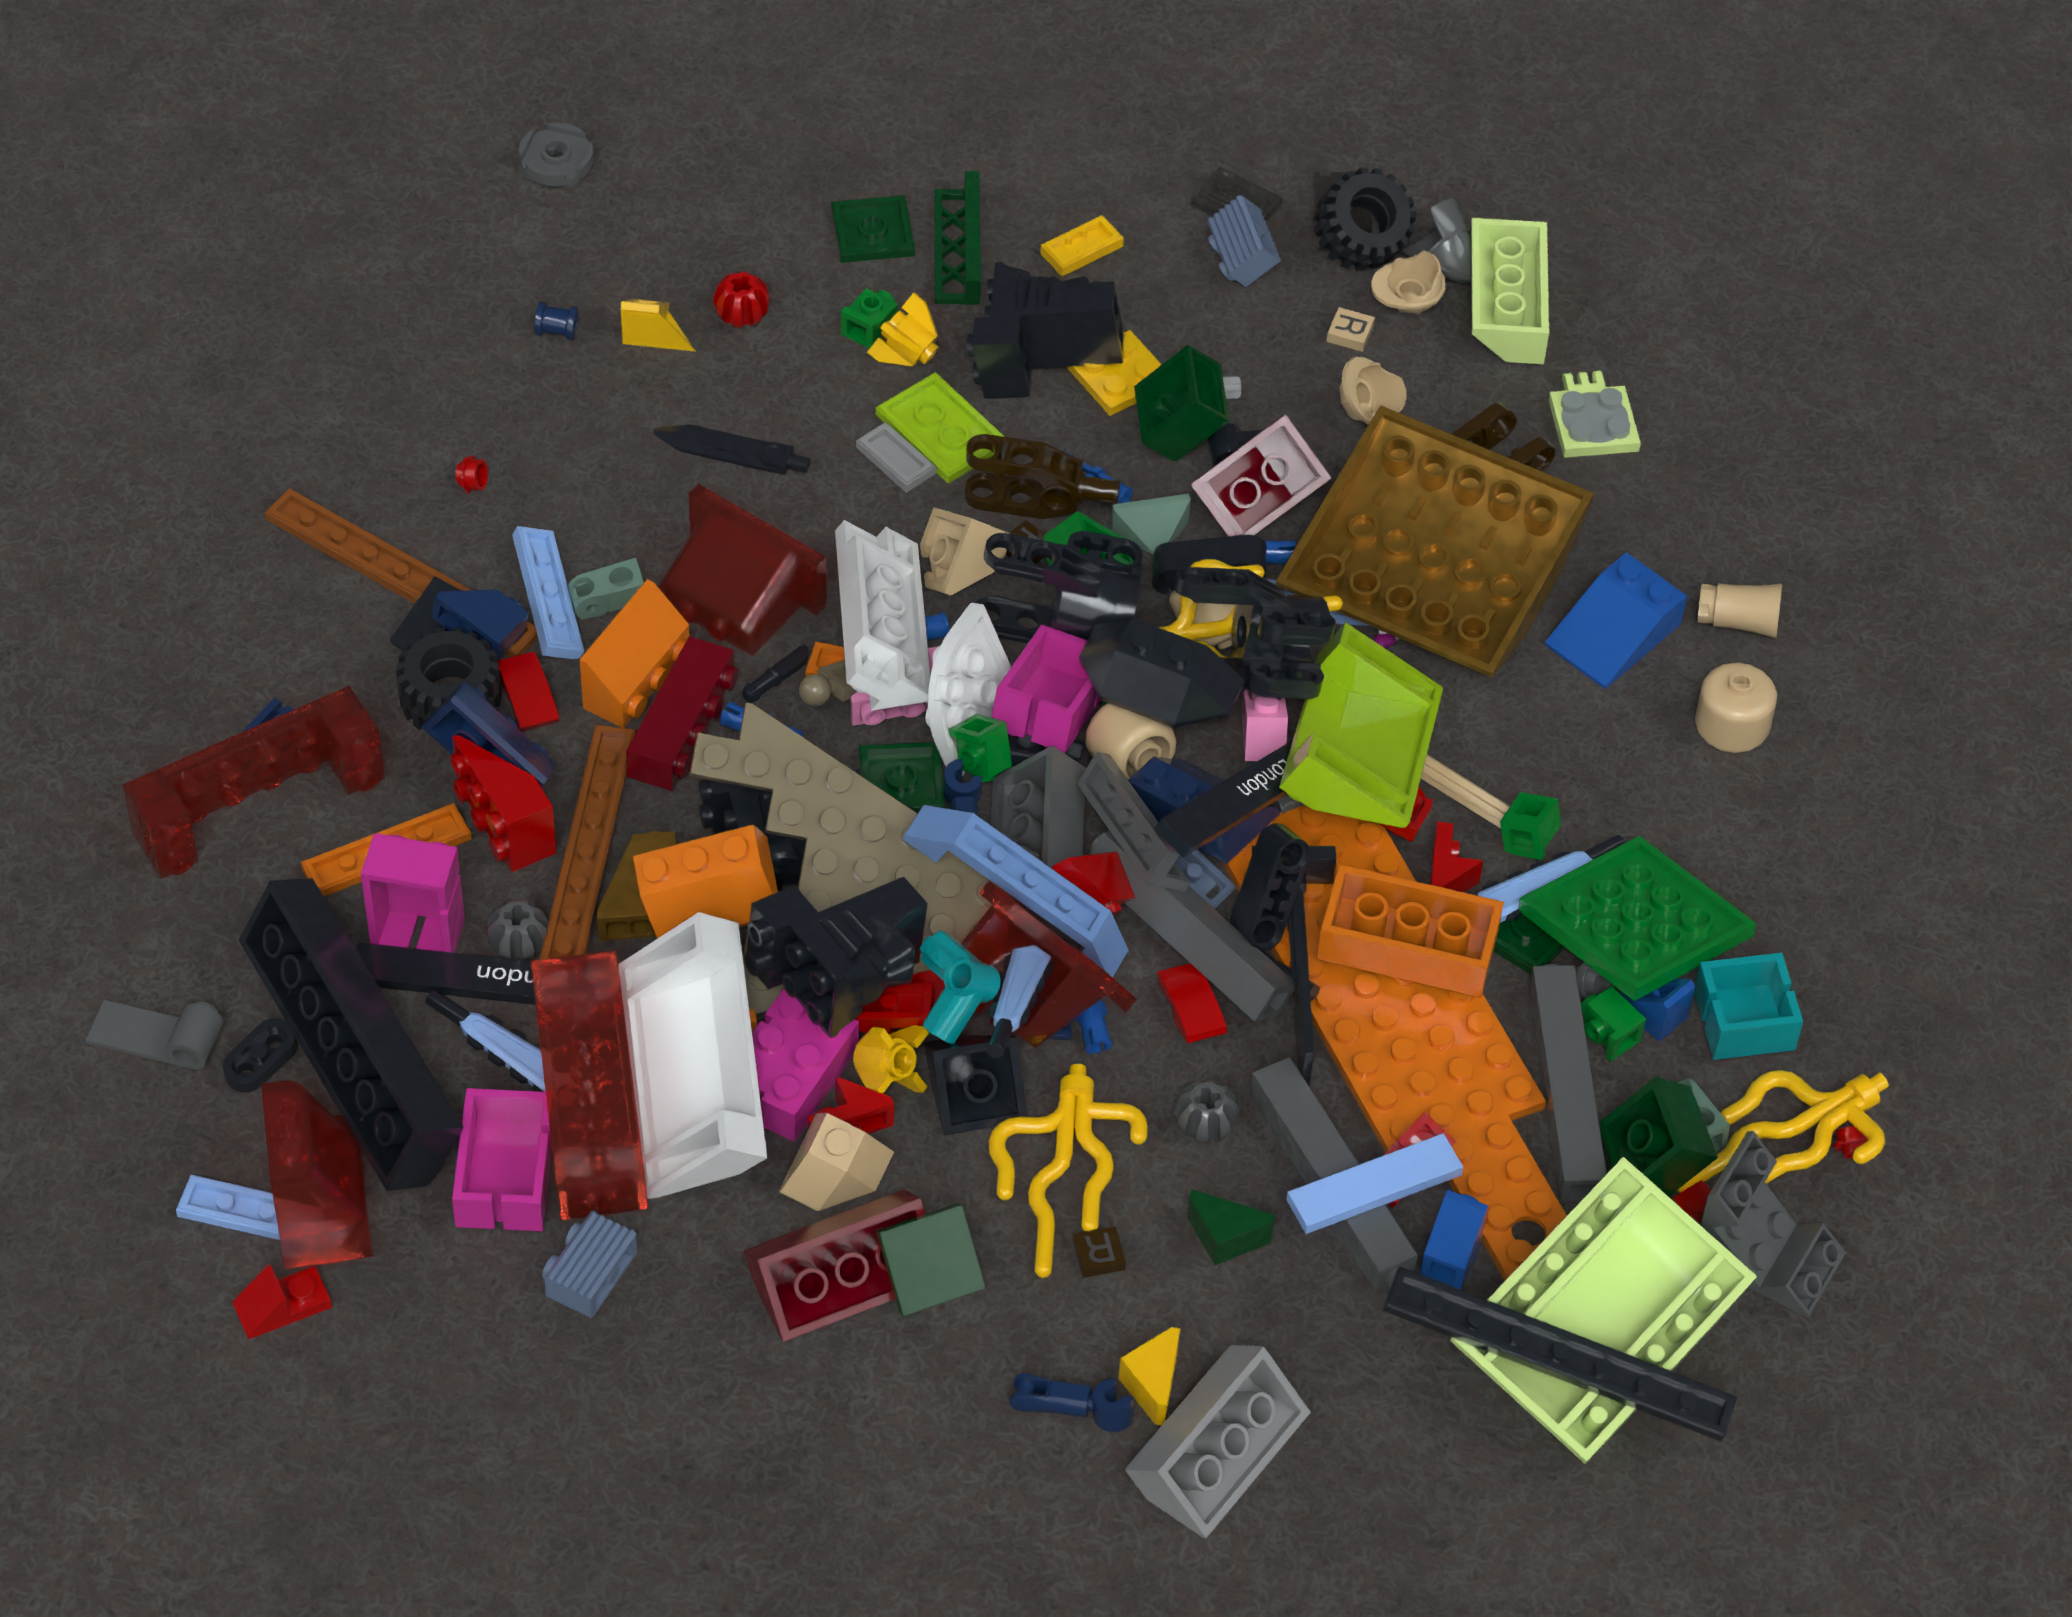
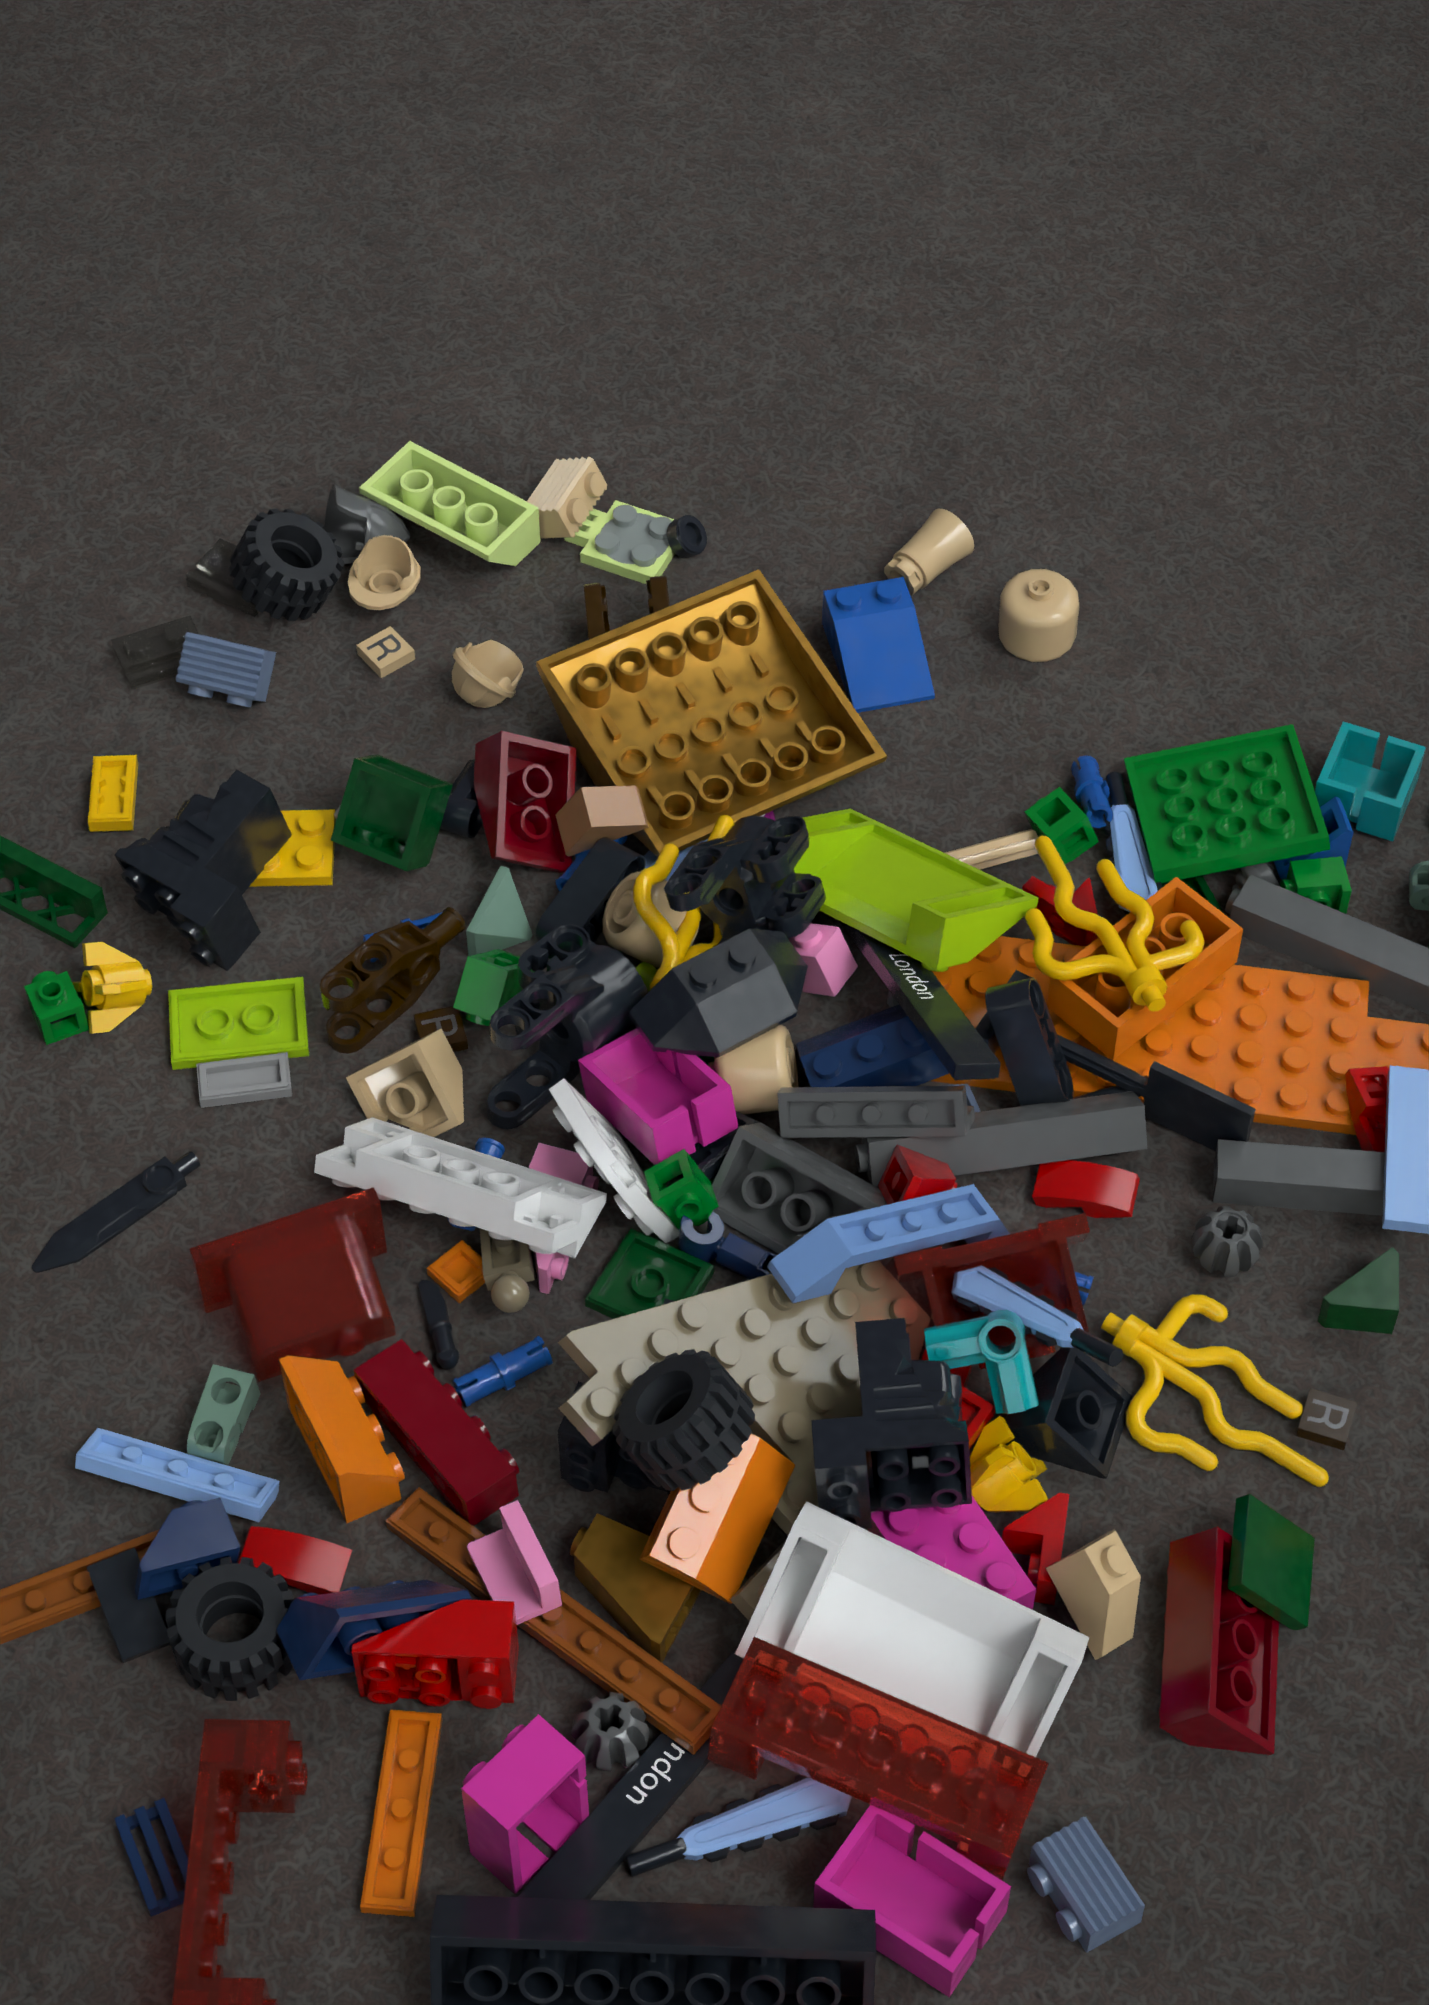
camera: 55 degrees left, 0 degrees up
(602, 810) = (516, 1566): none -> bright pink panel
(731, 805) = (683, 1420): none -> black tyre
(1279, 525) = (600, 814): none -> medium nougat slope
(1386, 904) = (1134, 967): none -> yellow plant
(1583, 829) = (1092, 791): none -> blue pin
(1589, 350) = (567, 496): none -> tan brick
(1624, 447) = (686, 536): none -> black tile

